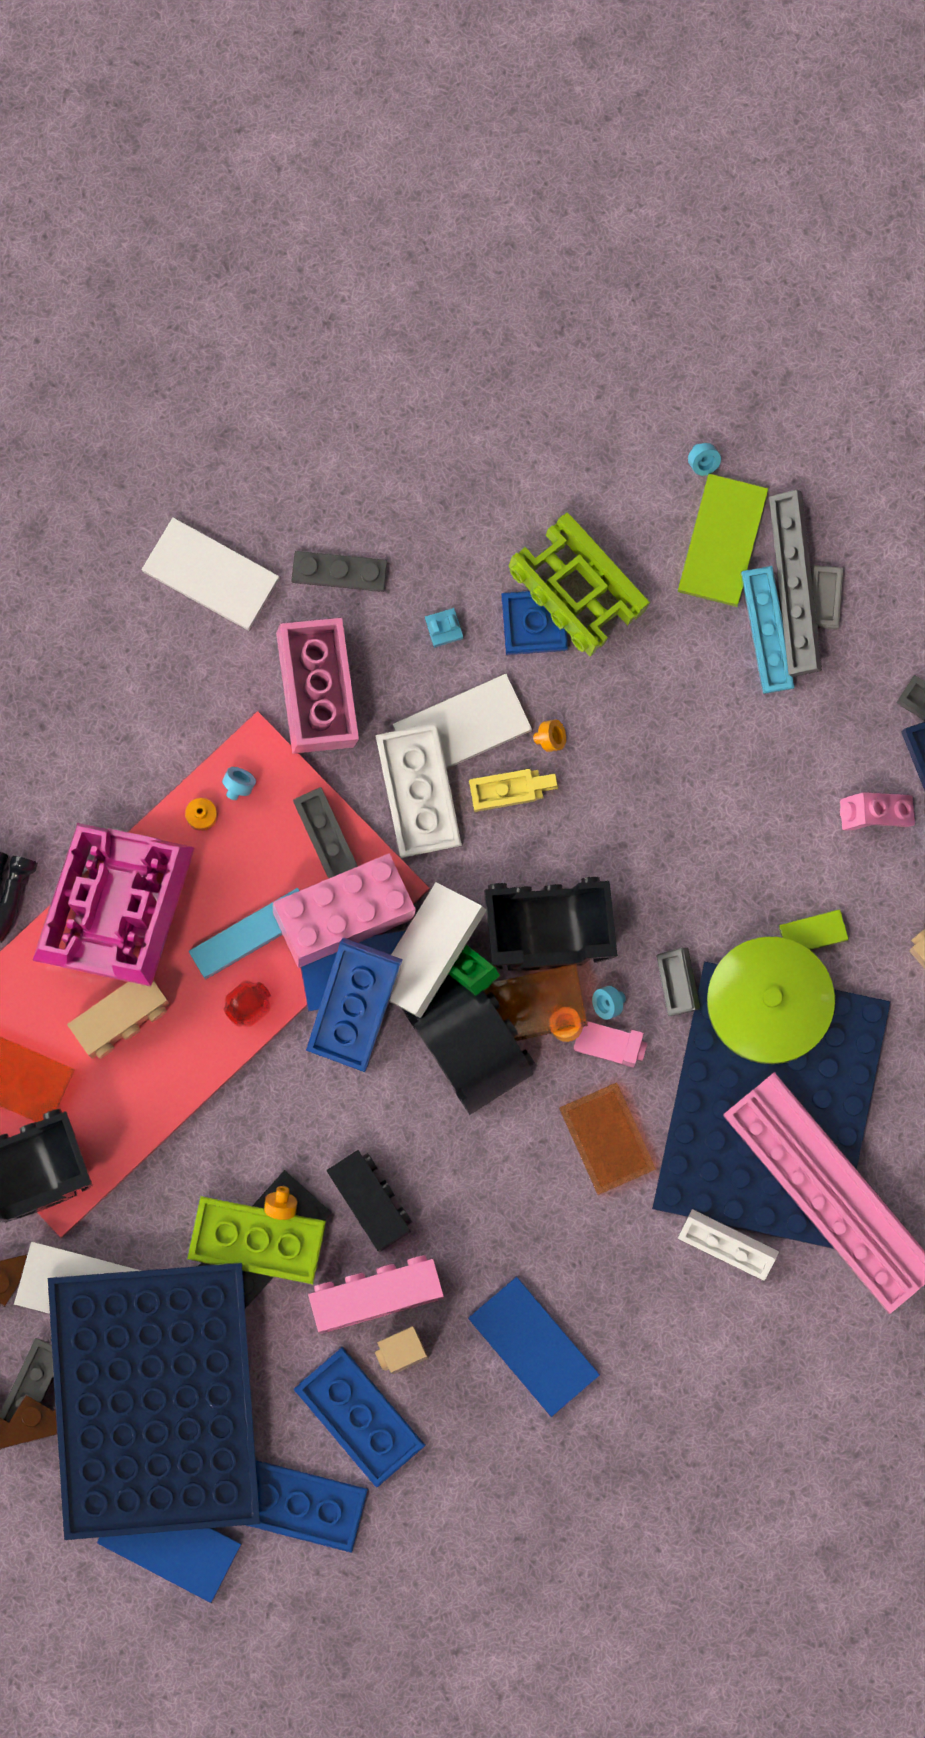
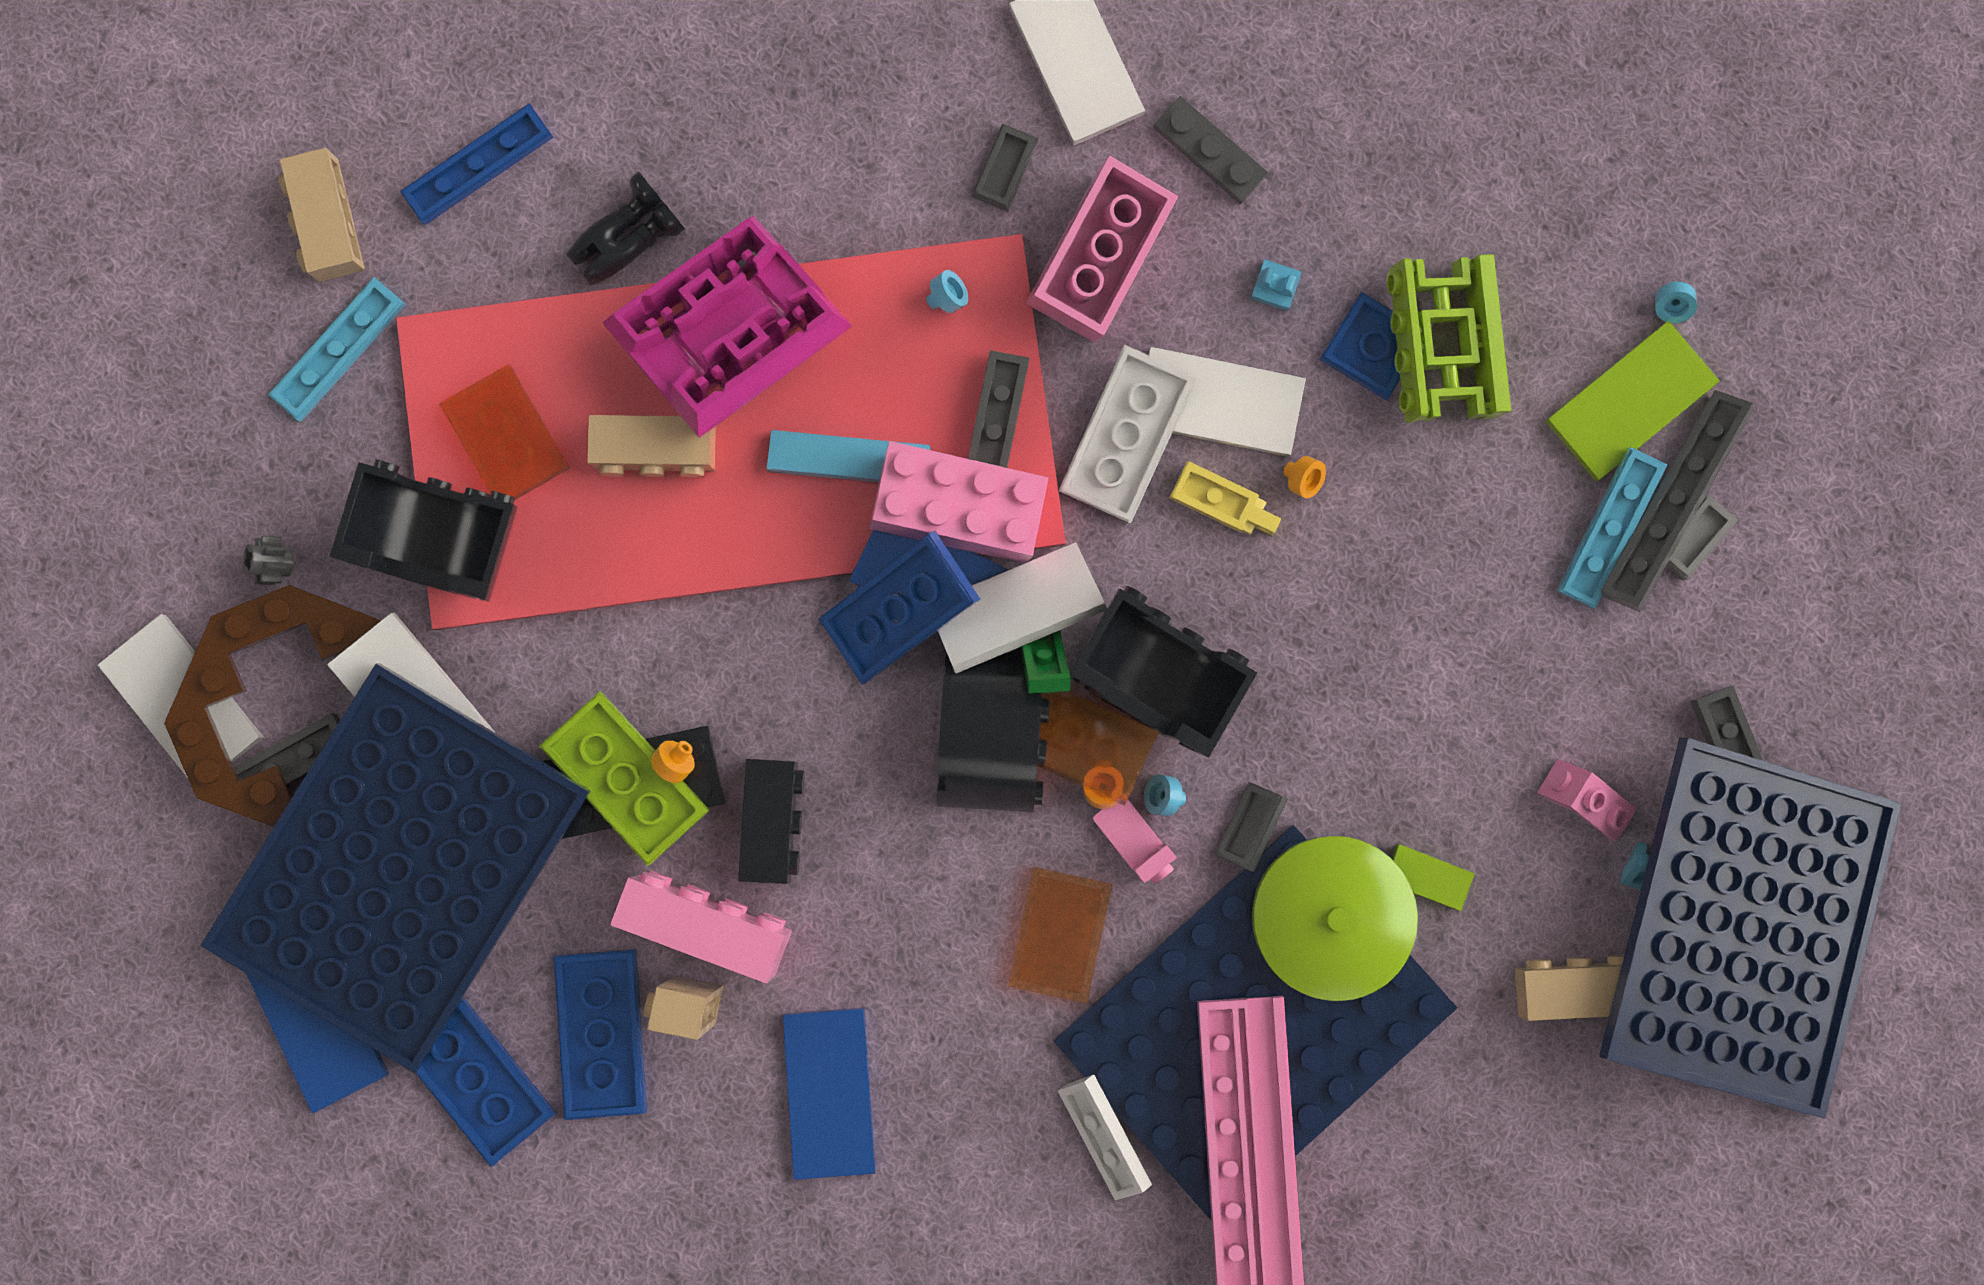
camera: 30 degrees right, 5 degrees up
(204, 820) = (888, 306): light orange tile -> none
(215, 676) = (1005, 167): none -> dark grey tile
(247, 1003) = (791, 527): clear red head -> none

